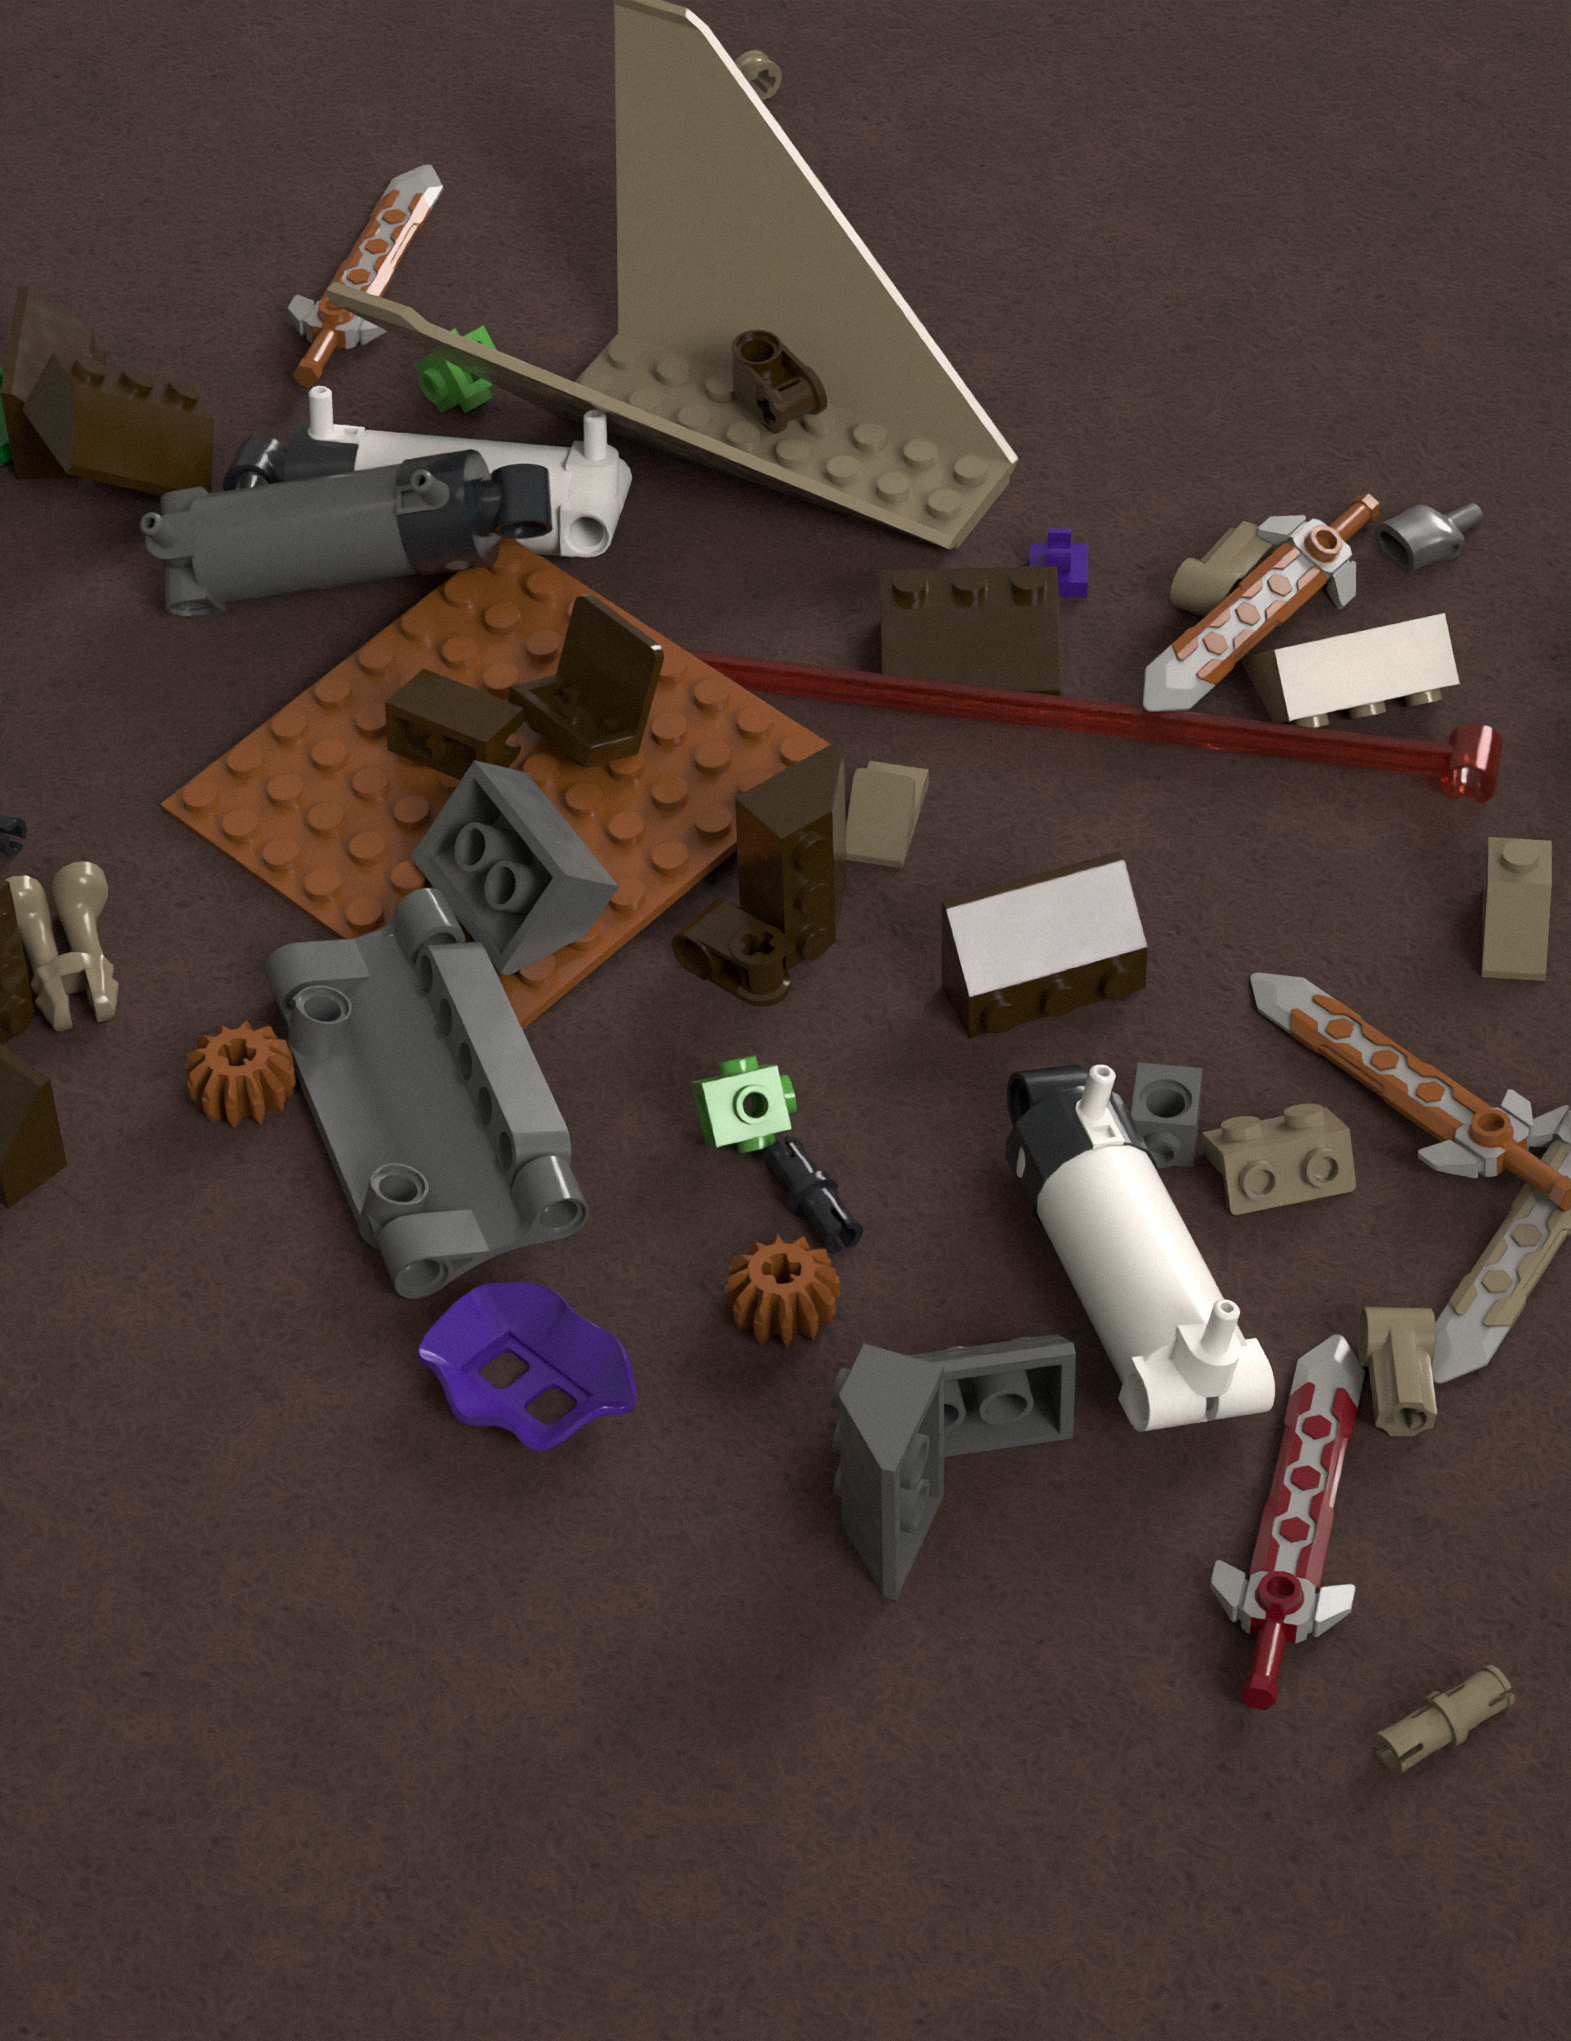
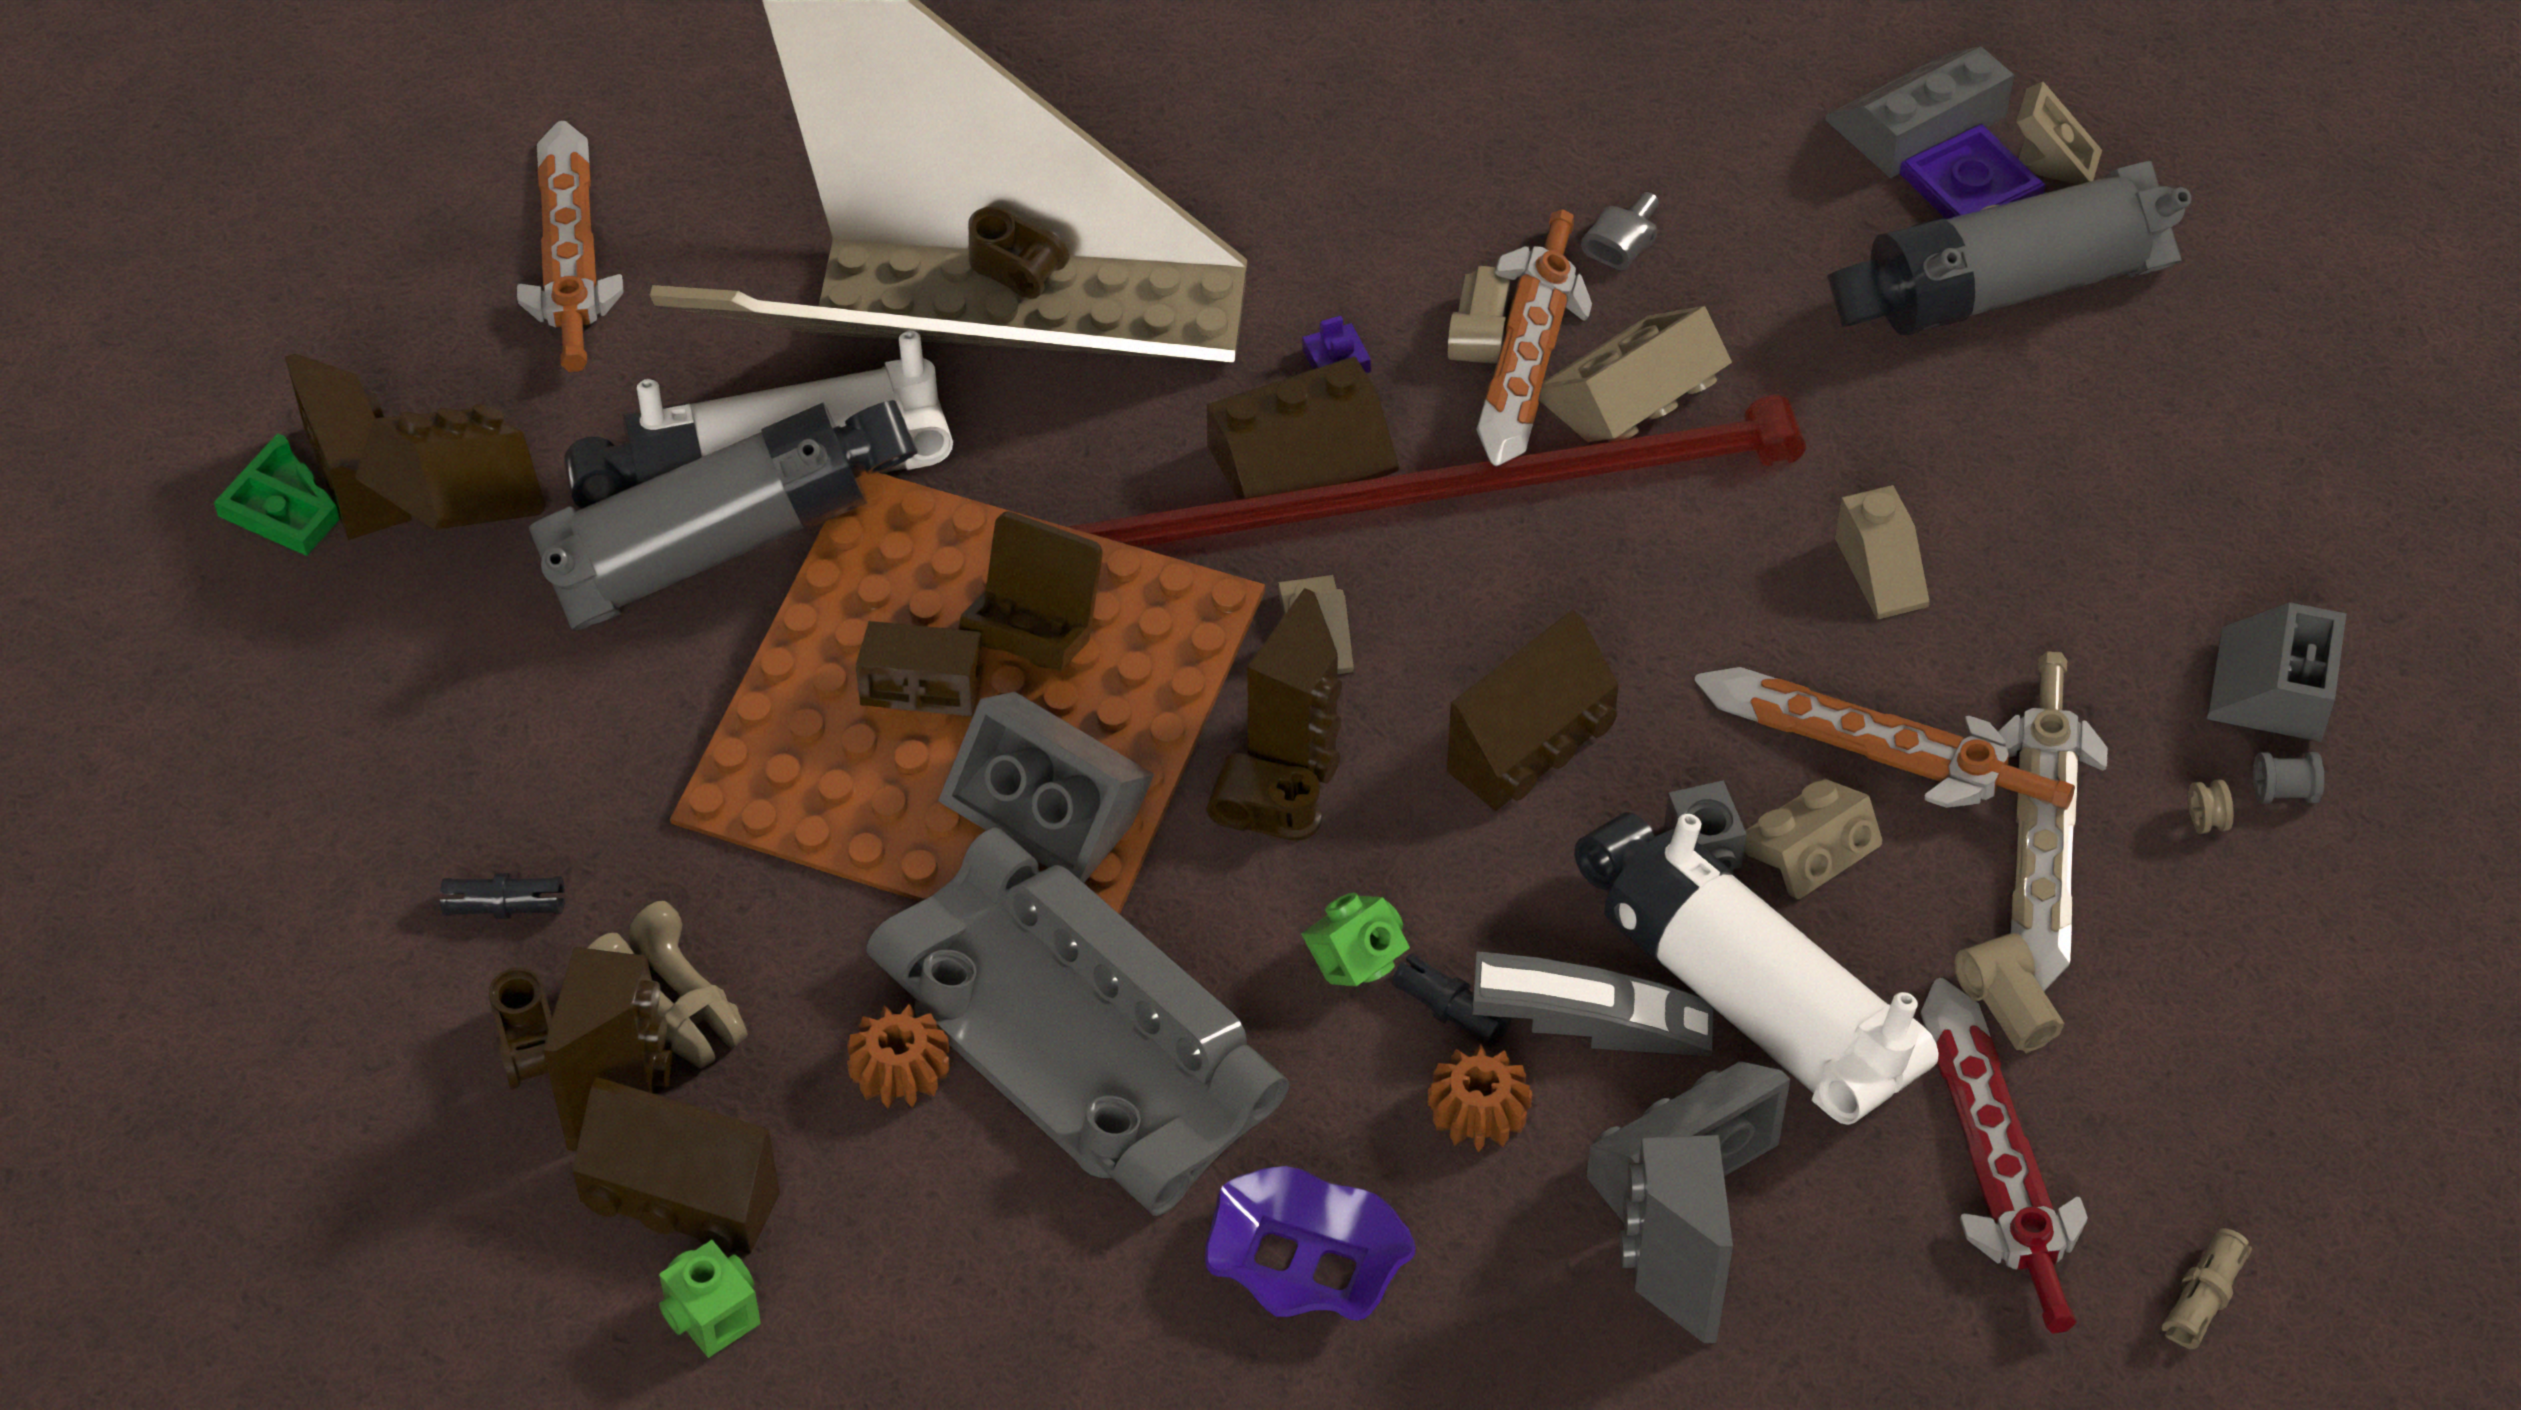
camera: 25 degrees left, 5 degrees up
(451, 385) = (712, 334): bright green brick -> none
(945, 1235) = (1593, 1002): none -> slope

